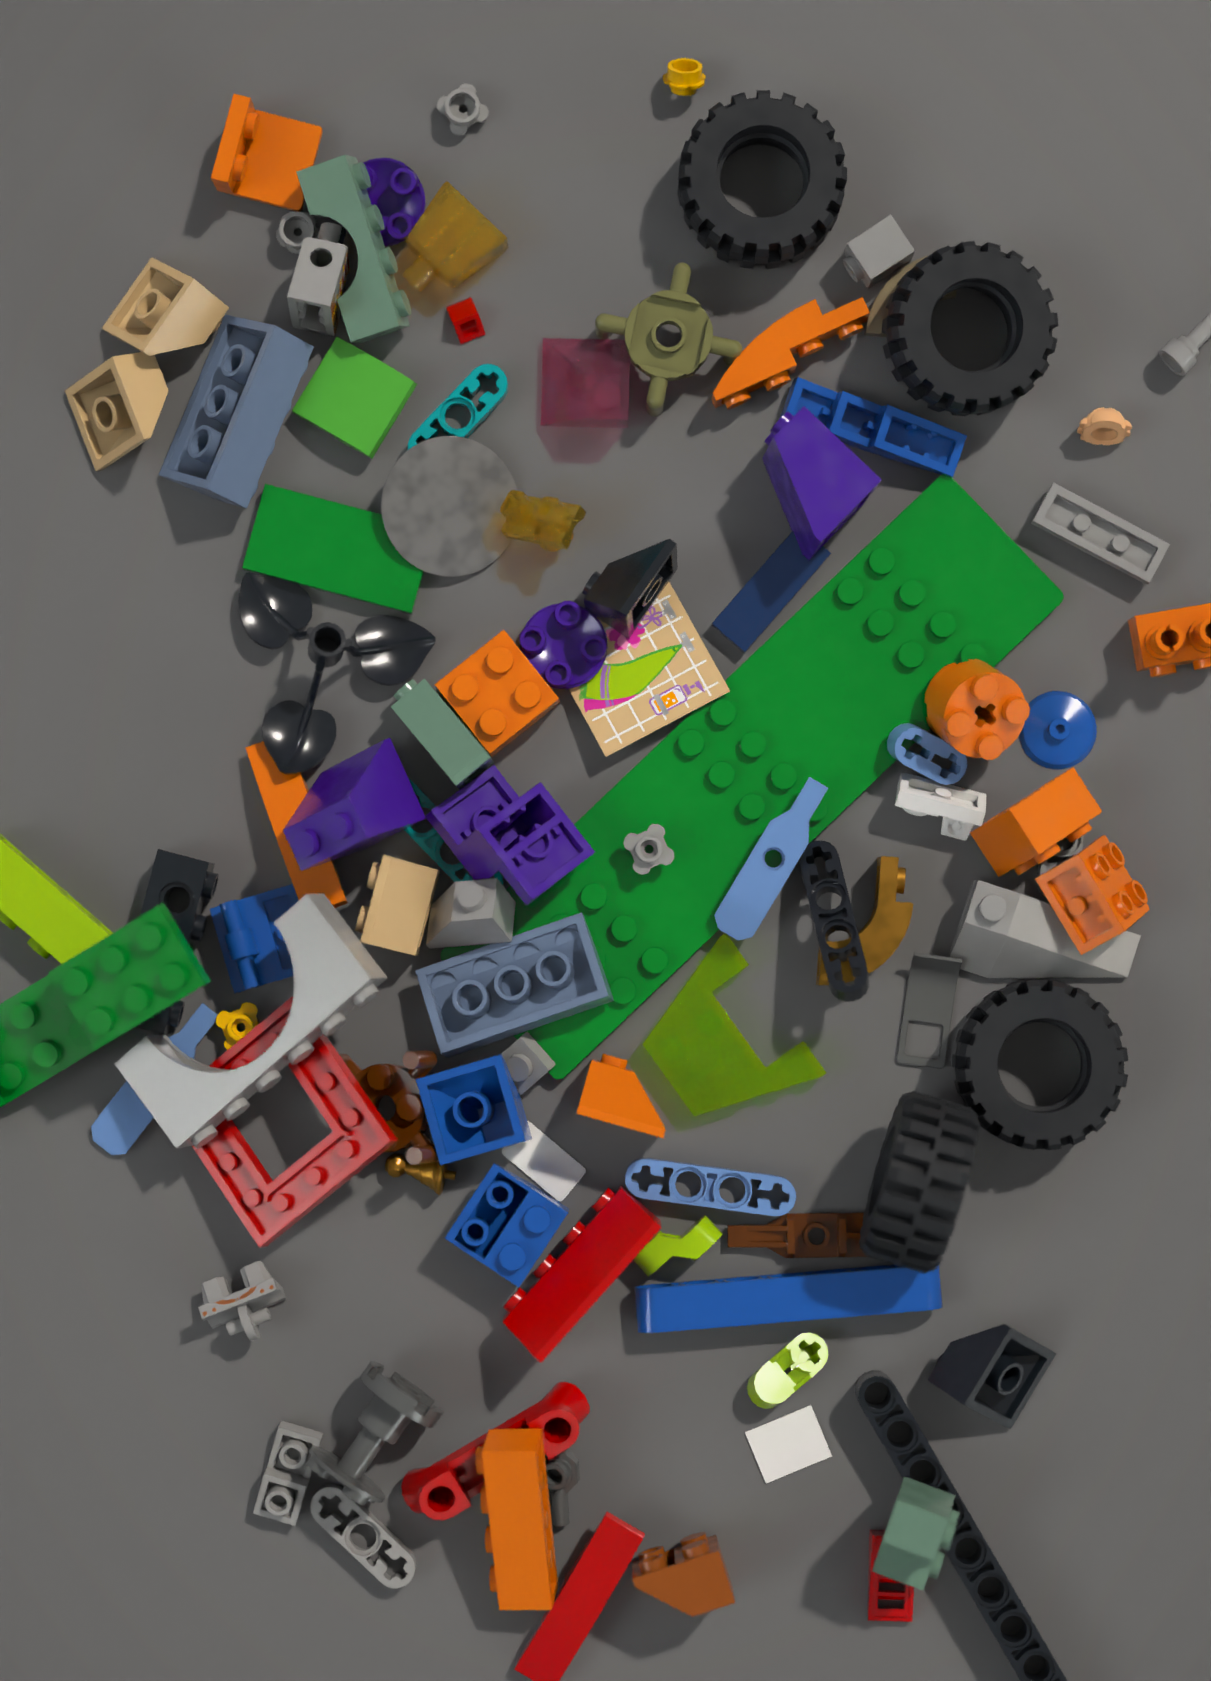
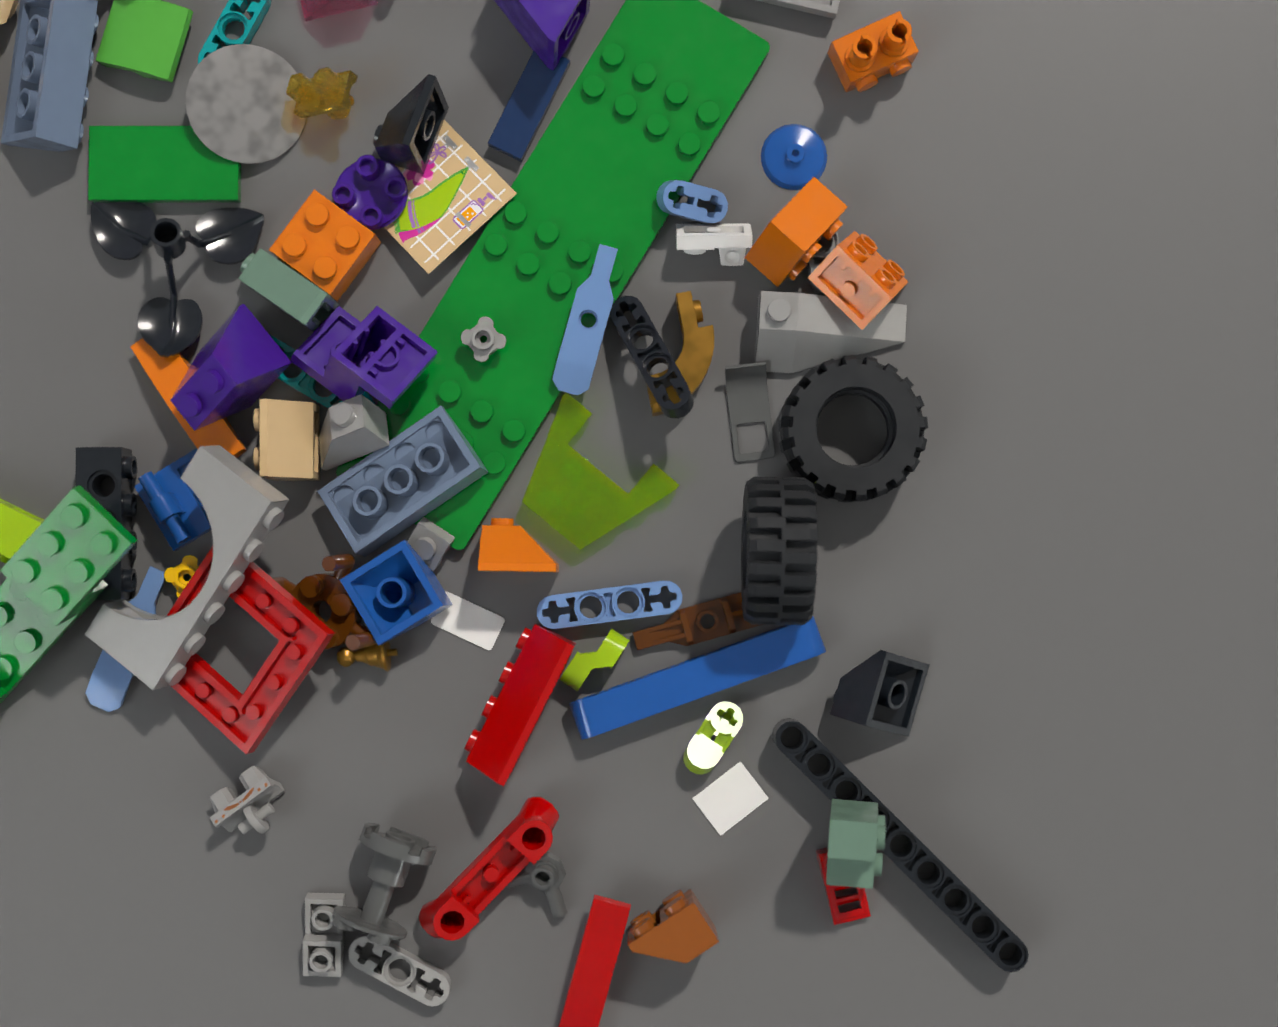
camera: 30 degrees left, 0 degrees up
(507, 1224) = (448, 679): blue slope -> none
(518, 1519) = (521, 920): orange brick -> none
(975, 708) = (740, 154): orange brick -> none

